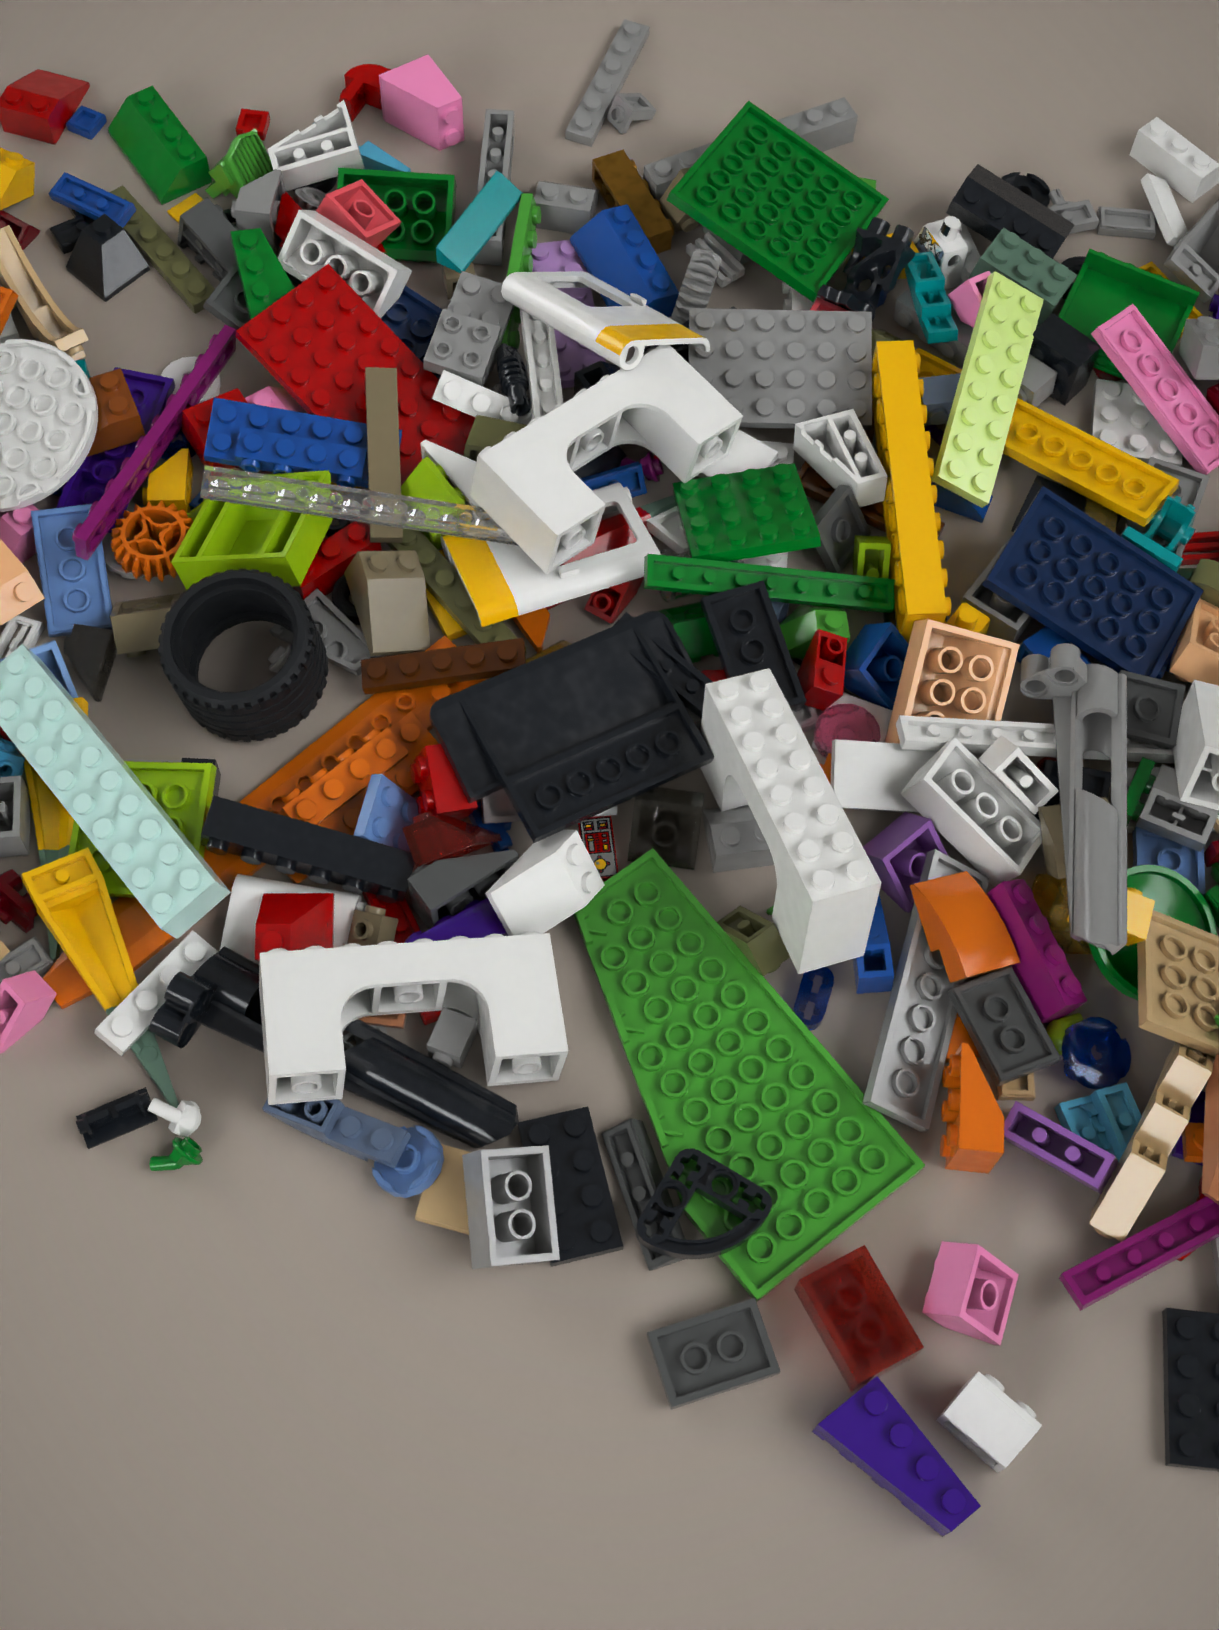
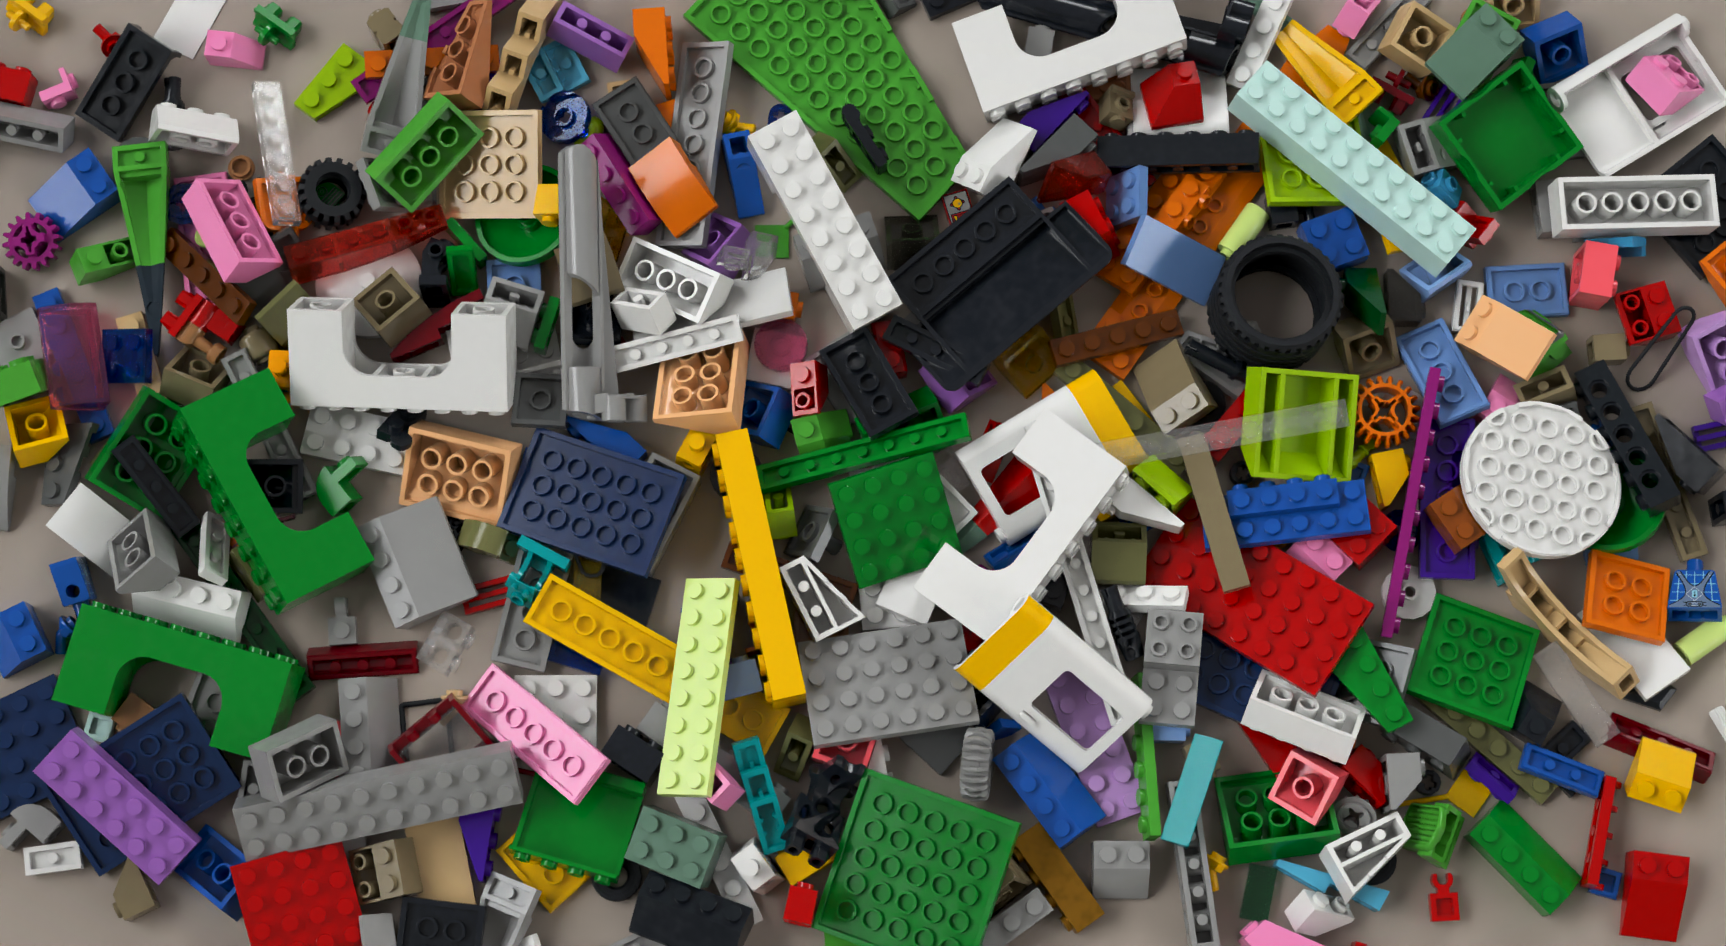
camera: 170 degrees right, 15 degrees up
(40, 844) = (1384, 125): none -> green bracket
(47, 256) = (1575, 694): none -> clear slope
(76, 147) = (1599, 834): none -> red hinge
(132, 657) = (1364, 296): none -> dark green slope
(145, 302) = (1472, 661): none -> green plate
(148, 728) = (1337, 237): none -> blue brick
(162, 208) = (1498, 783): none -> dark purple plate
(254, 767) = (1244, 229): none -> yellowish green brick
(335, 620) = (1232, 368): none -> black pin
(353, 729) = (1173, 260): none -> medium blue tile
(383, 129) = (1318, 913): none -> white slope
(436, 159) = (1258, 892): none -> clear green tile
(467, 188) = (1216, 865): none -> yellow plate
(707, 947) = (864, 138): none -> black hinge
(872, 1014) = (732, 123): none -> yellow plate
(873, 808) = (754, 259): none -> clear brick
(902, 190) = (801, 905): none -> red arch

